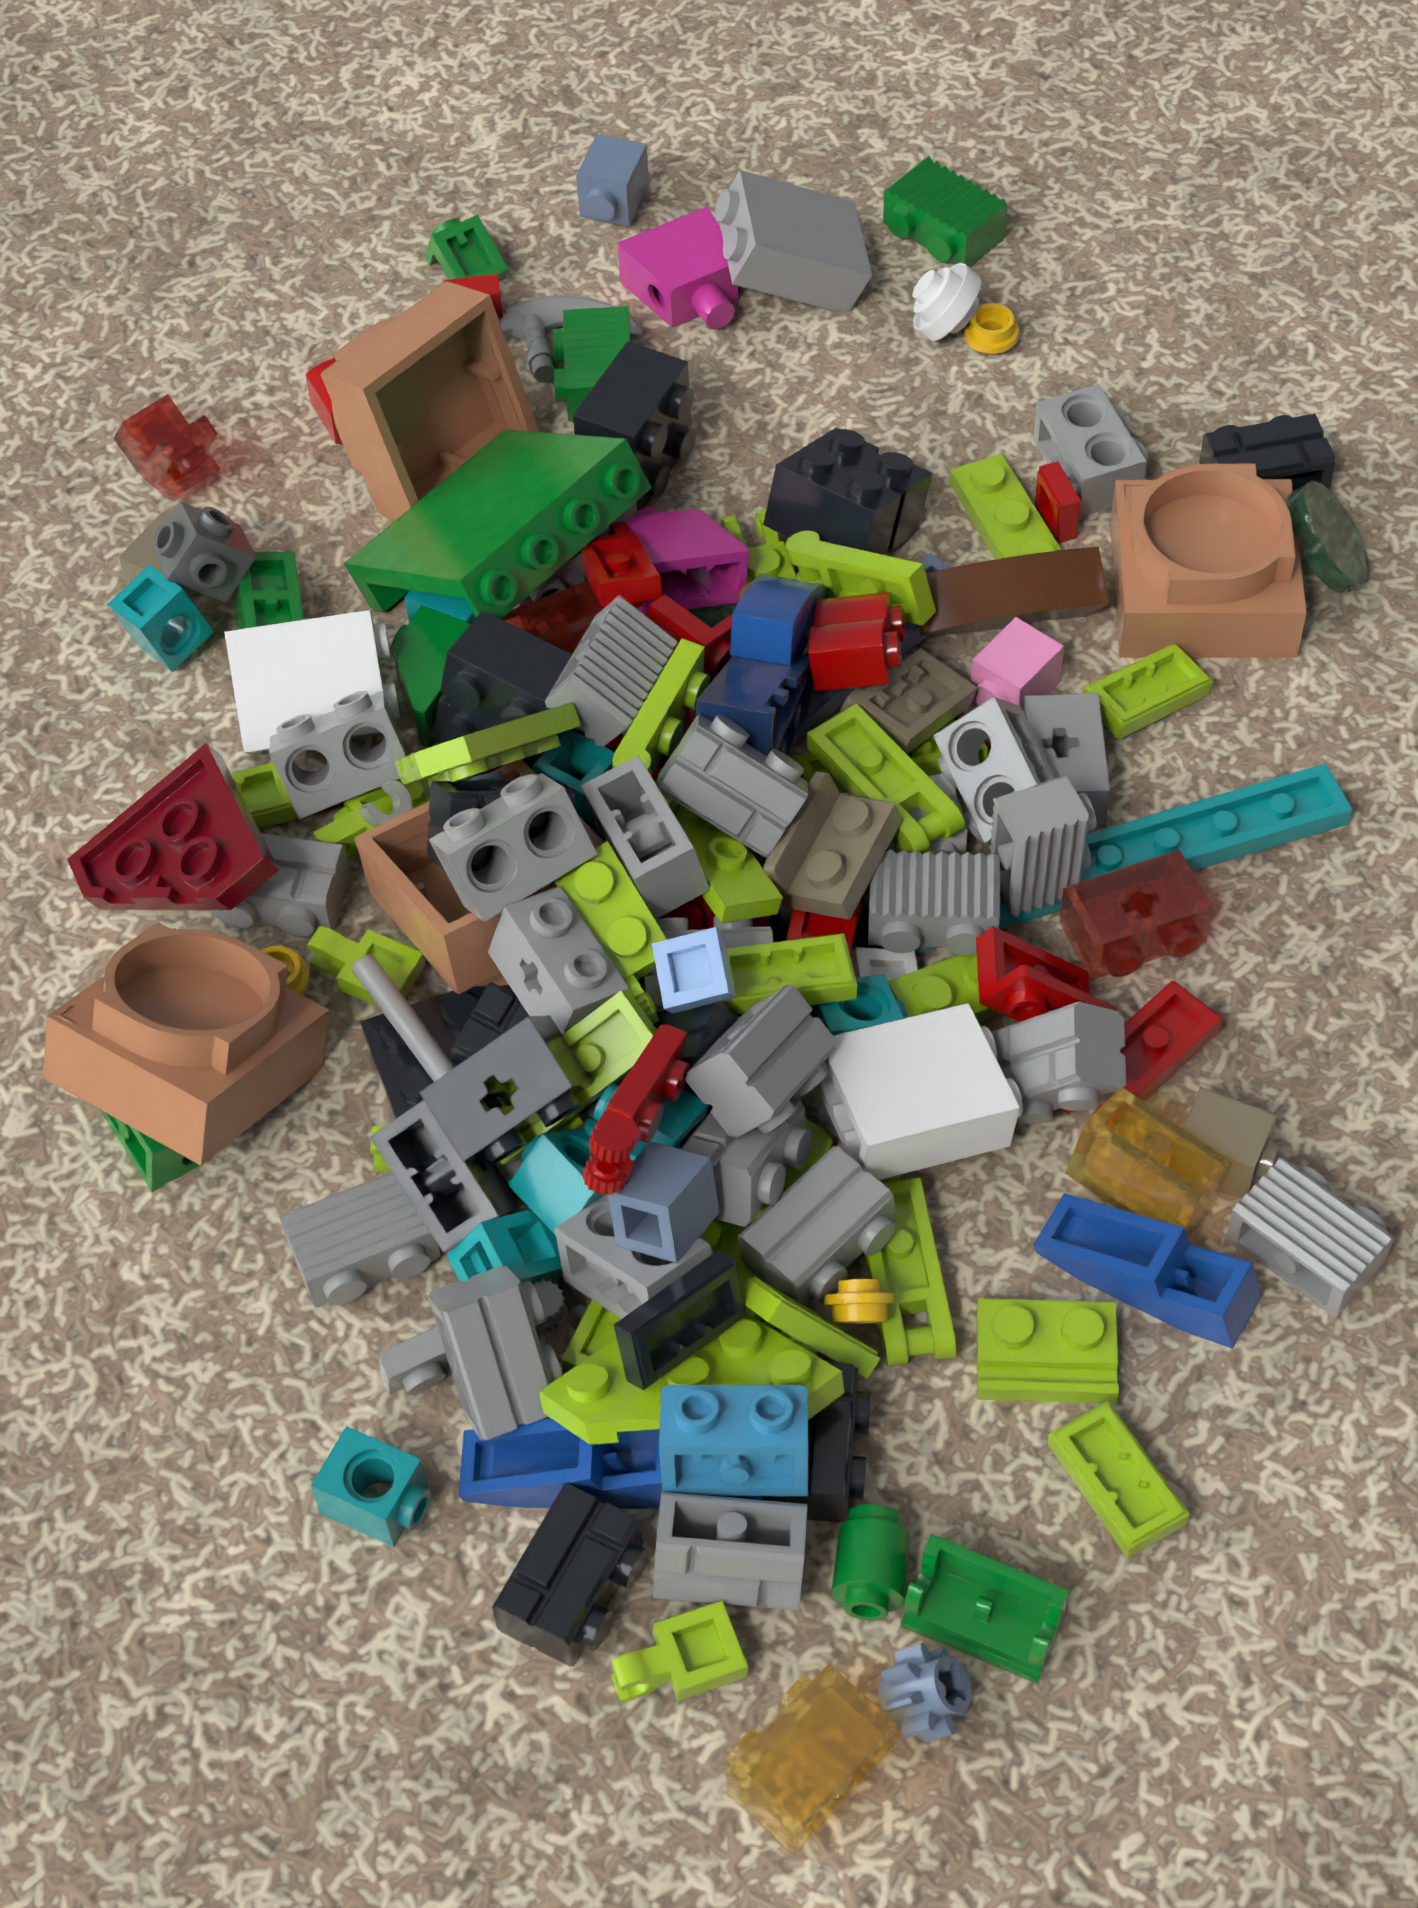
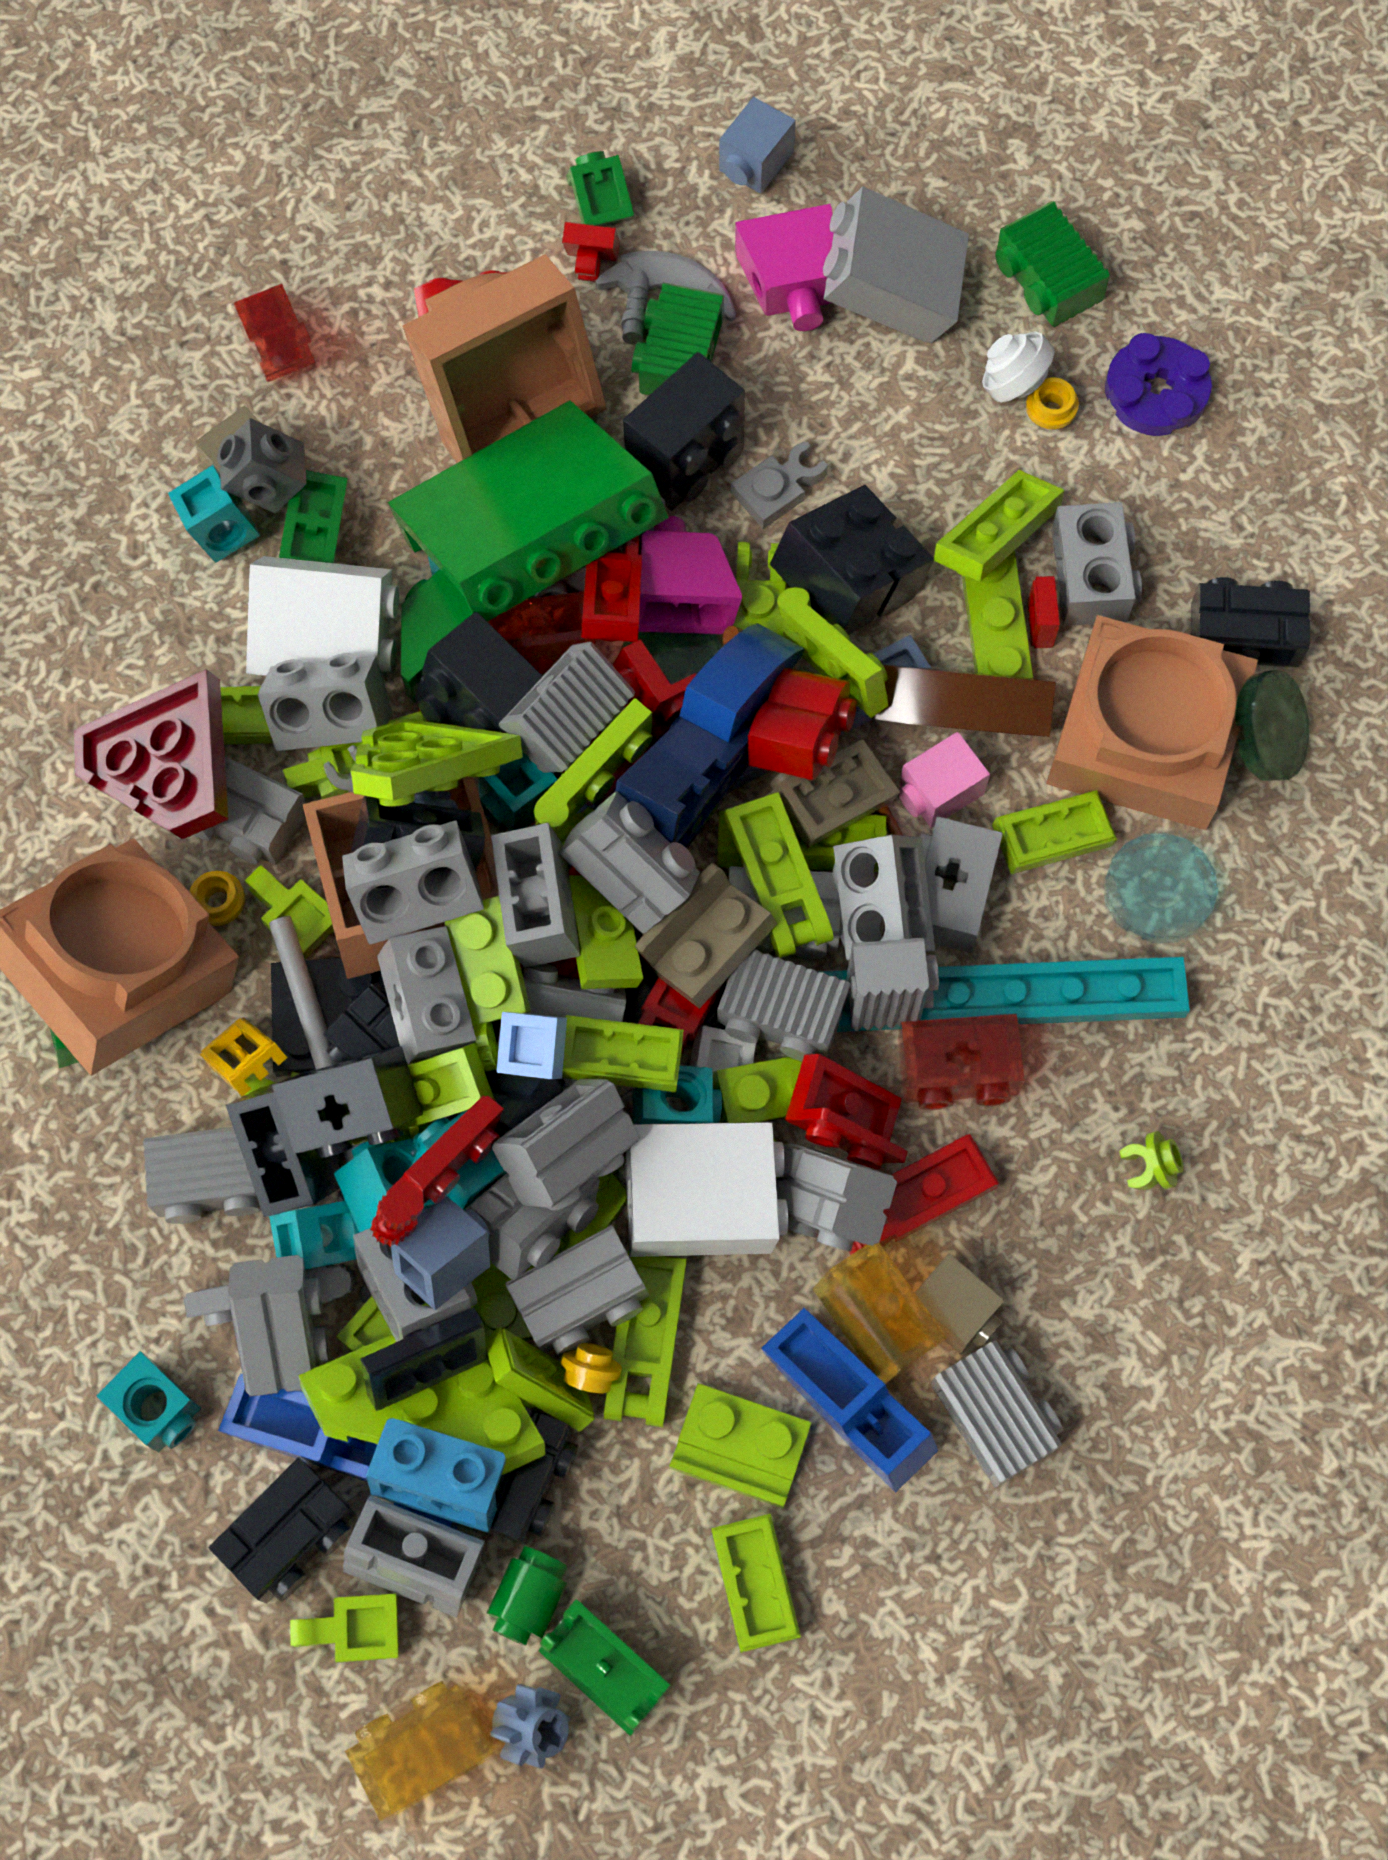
camera: 15 degrees right, 15 degrees up
(369, 1101) = (249, 1063): none -> yellow tile
(740, 469) = (775, 488): none -> light grey plate
(983, 436) = (998, 525): none -> lime plate
(1071, 270) = (1164, 358): none -> dark purple plate
(1274, 715) = (1160, 887): none -> clear light blue tile
(1380, 953) = (1161, 1159): none -> lime plate

